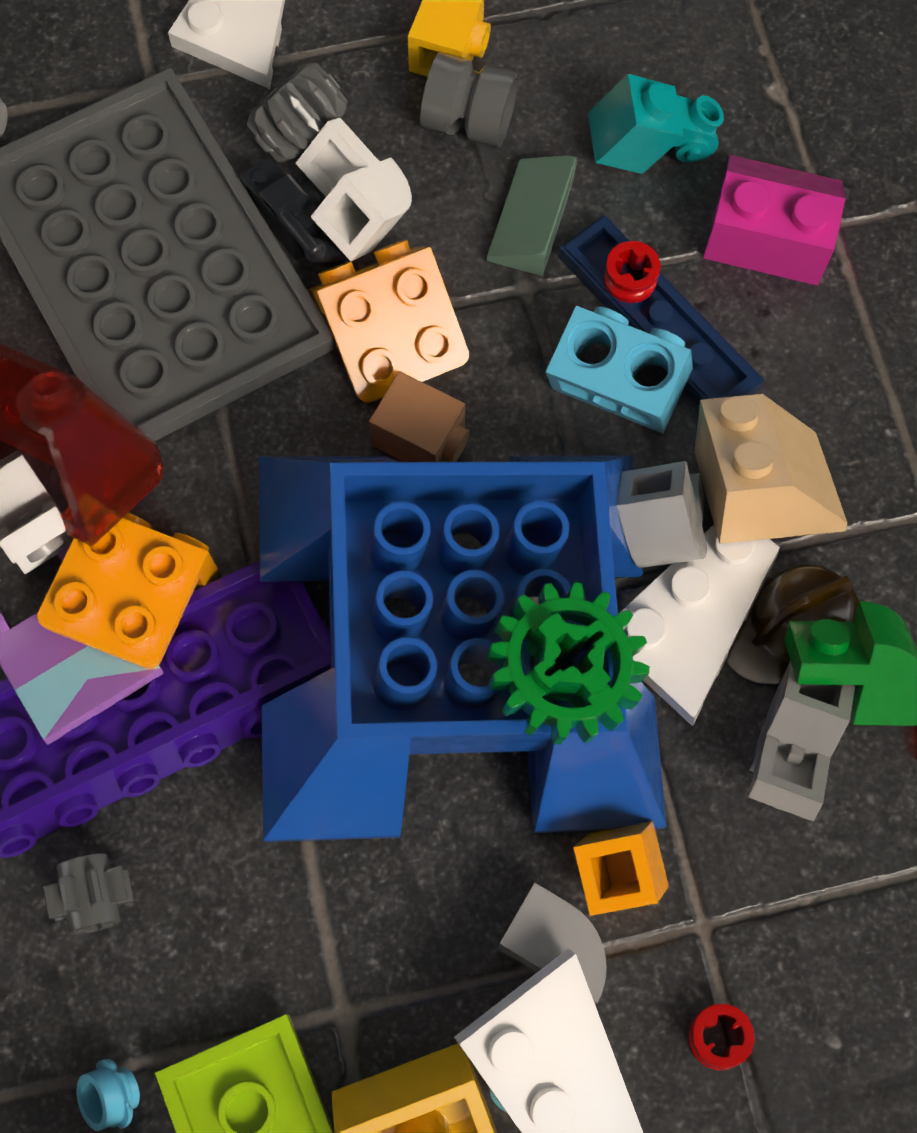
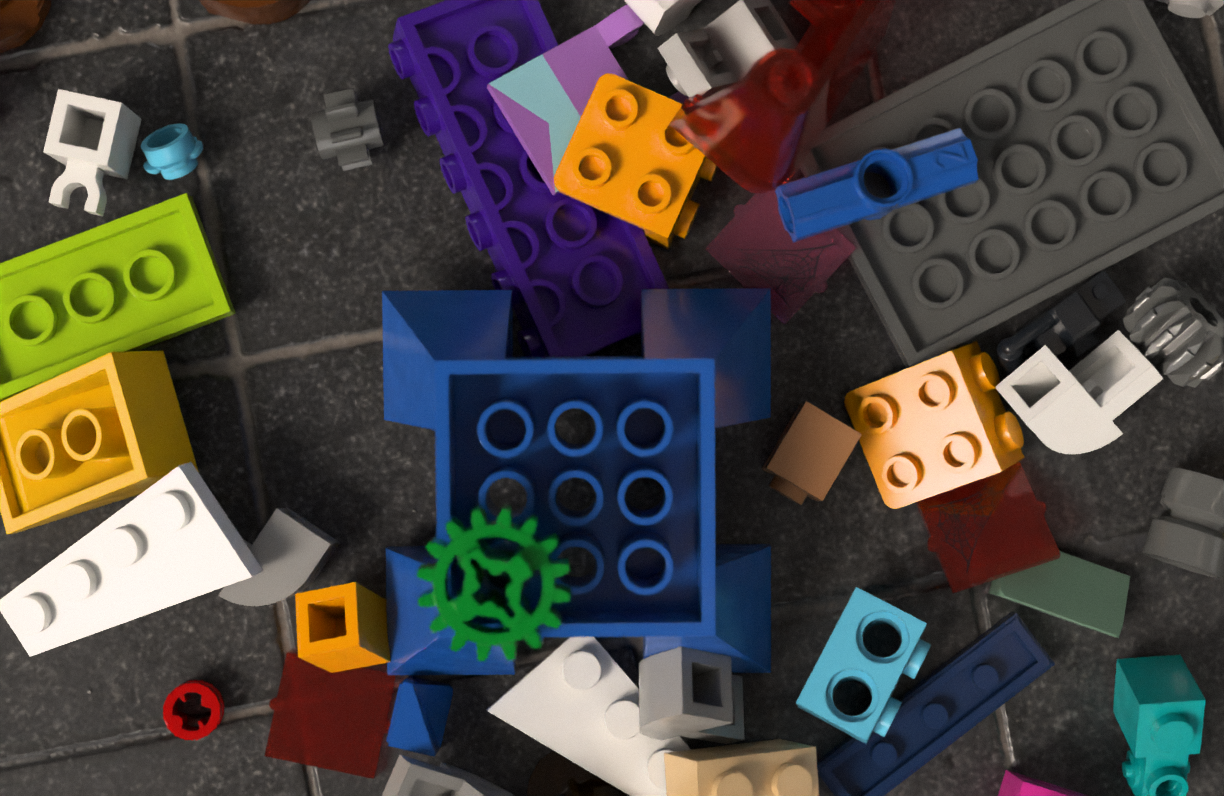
camera: 90 degrees right, 15 degrees up
(164, 388) = (912, 172): none -> blue piece
(215, 459) = (764, 256): none -> clear pink piece
(486, 271) = (988, 529): none -> clear red piece
(639, 257) = (995, 696): red bush -> none
(705, 792) = (420, 715): none -> blue slope
(714, 889) = (330, 717): none -> clear red piece

